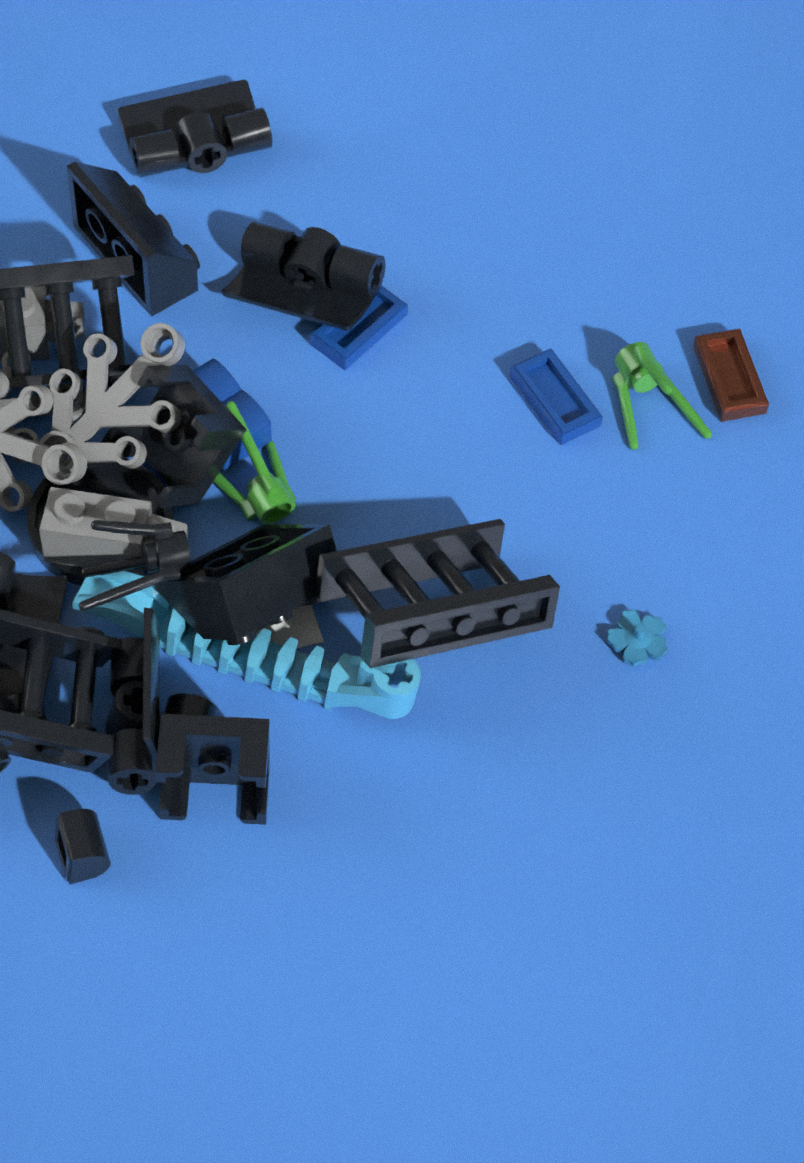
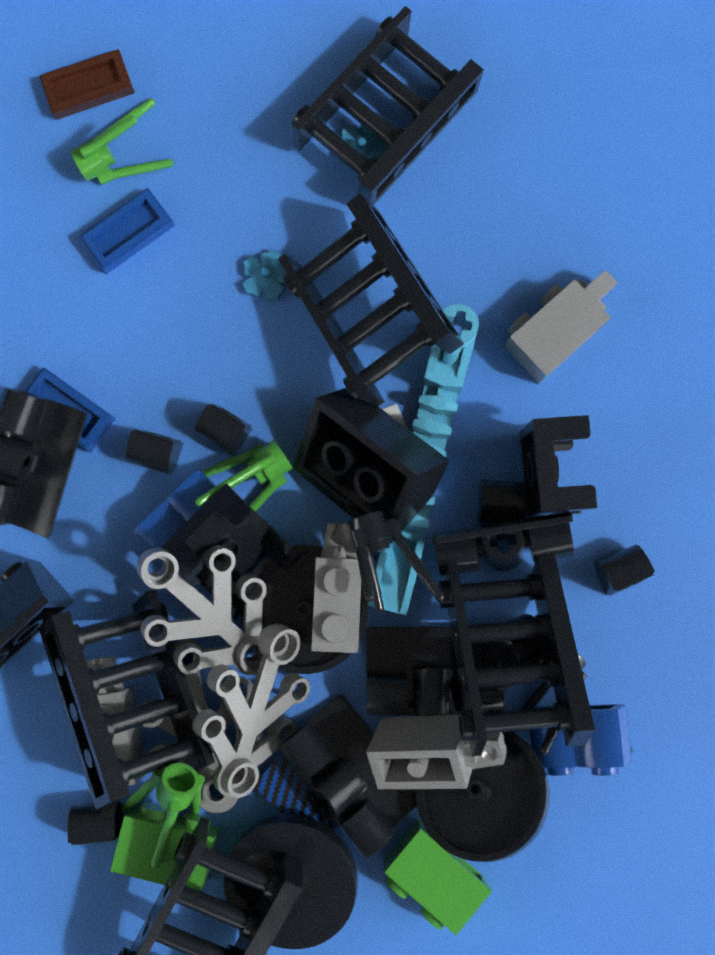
camera: 90 degrees left, 25 degrees up
(301, 393) = (153, 451): none -> black brick
(316, 460) = (222, 428): none -> black brick
(390, 813) = (560, 327): none -> light grey hinge
(481, 512) = (264, 276): none -> dark azure plant
(665, 700) = (401, 146): none -> black fence

